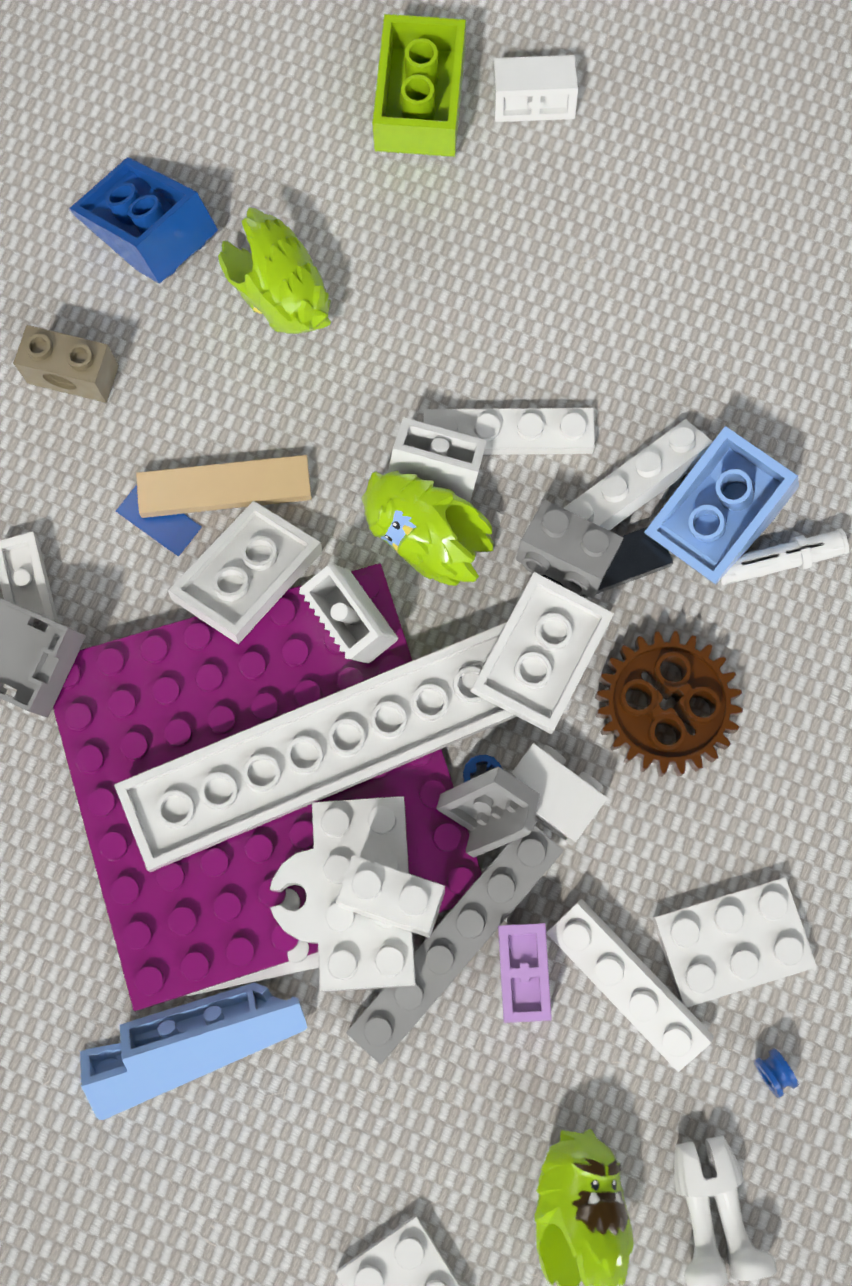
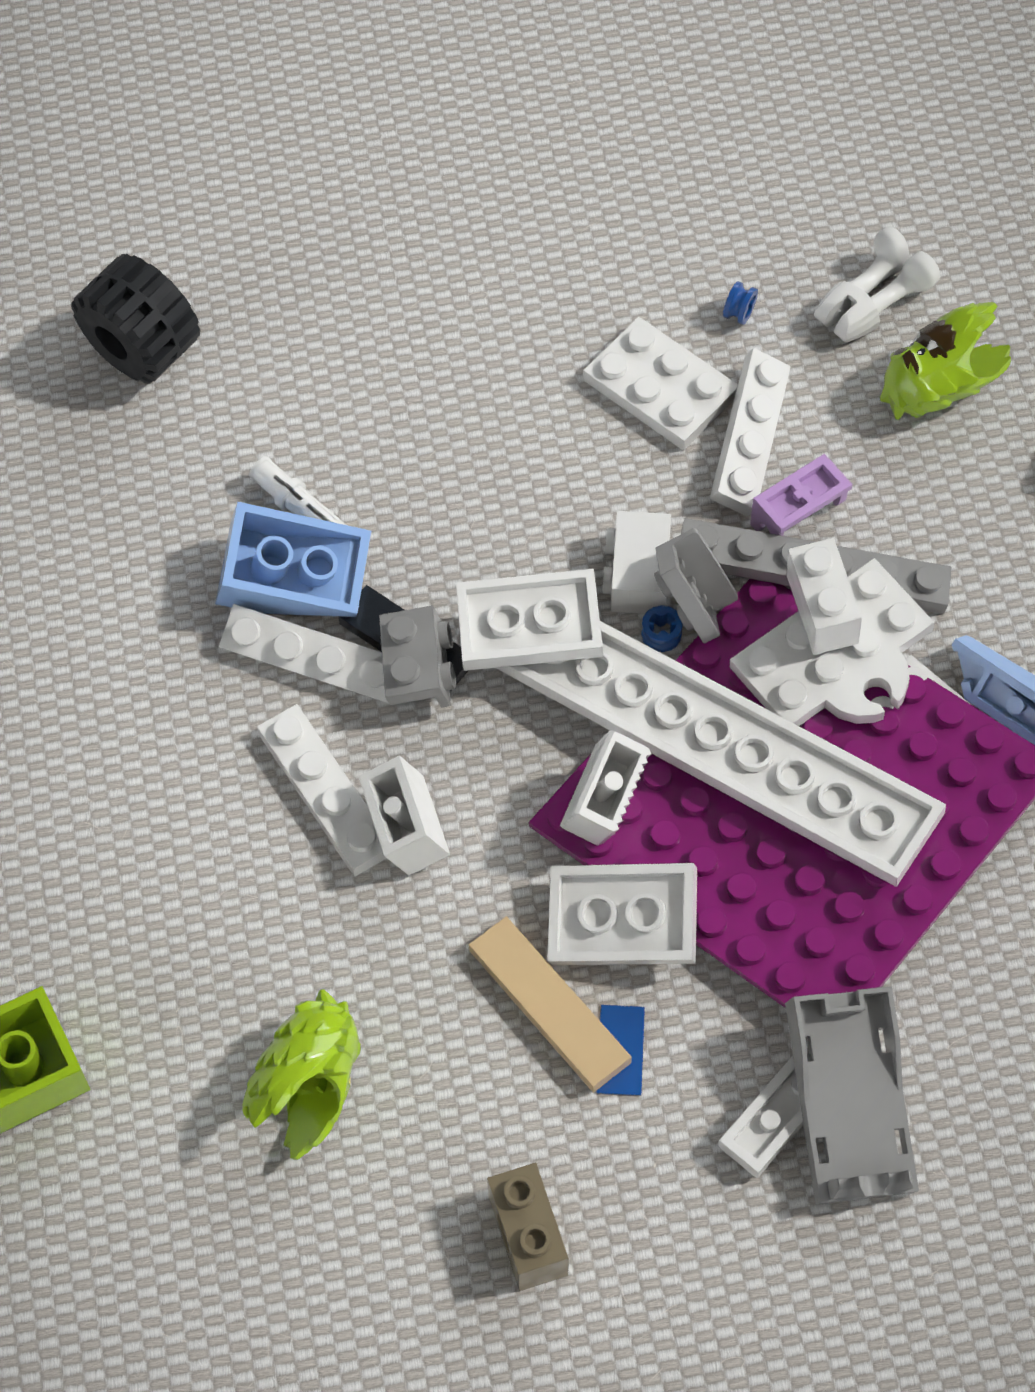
camera: 125 degrees left, 15 degrees down
(146, 218) = (312, 1268): blue slope -> none
(427, 526) = (476, 784): lime head -> none
(699, 679) = (459, 510): reddish brown gear -> none

